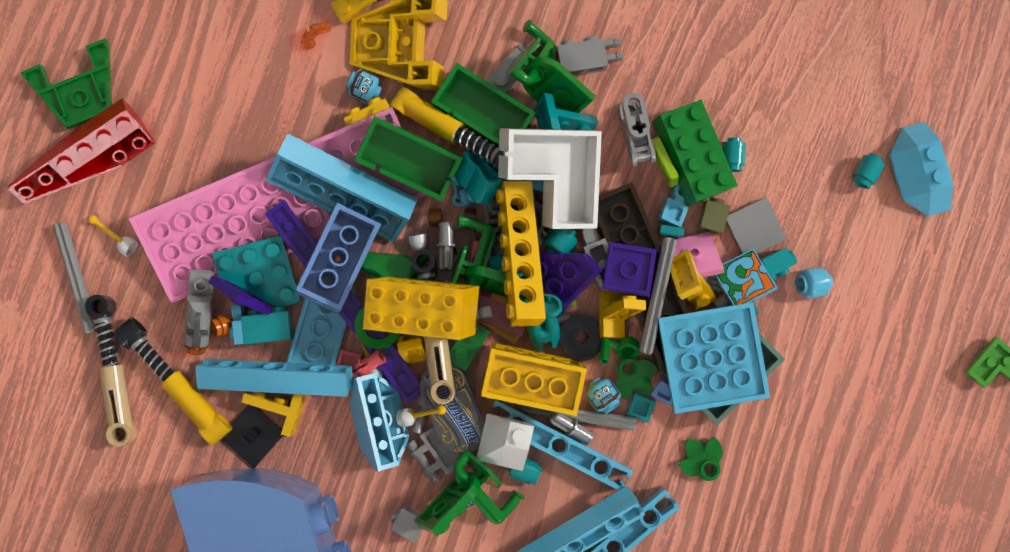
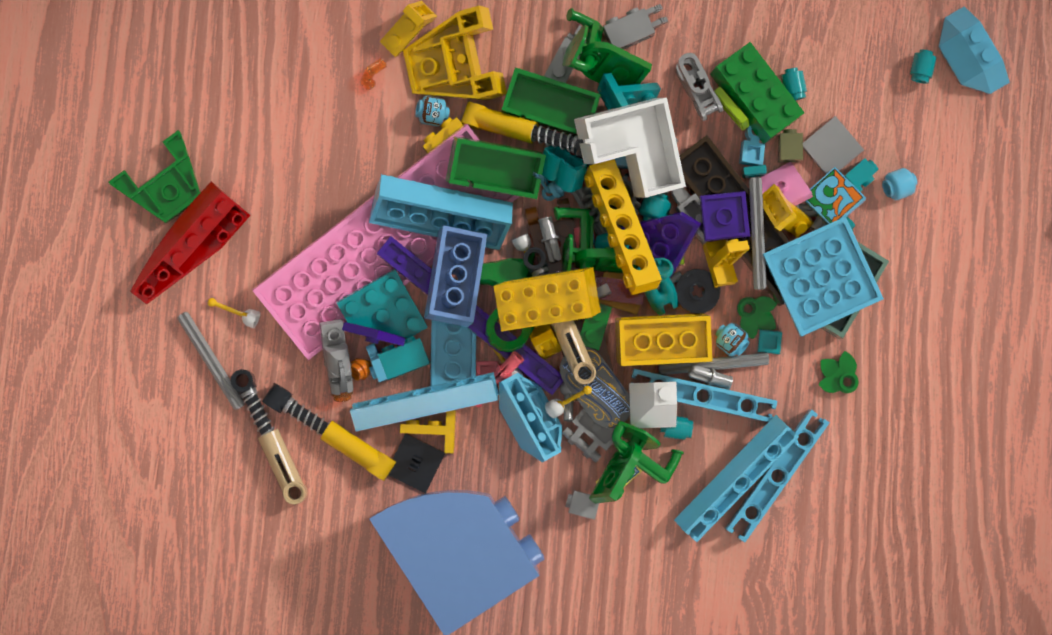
camera: 15 degrees left, 0 degrees up
(625, 348) = (741, 290): green plate -> none
(661, 391) = (785, 321): medium blue tile -> none

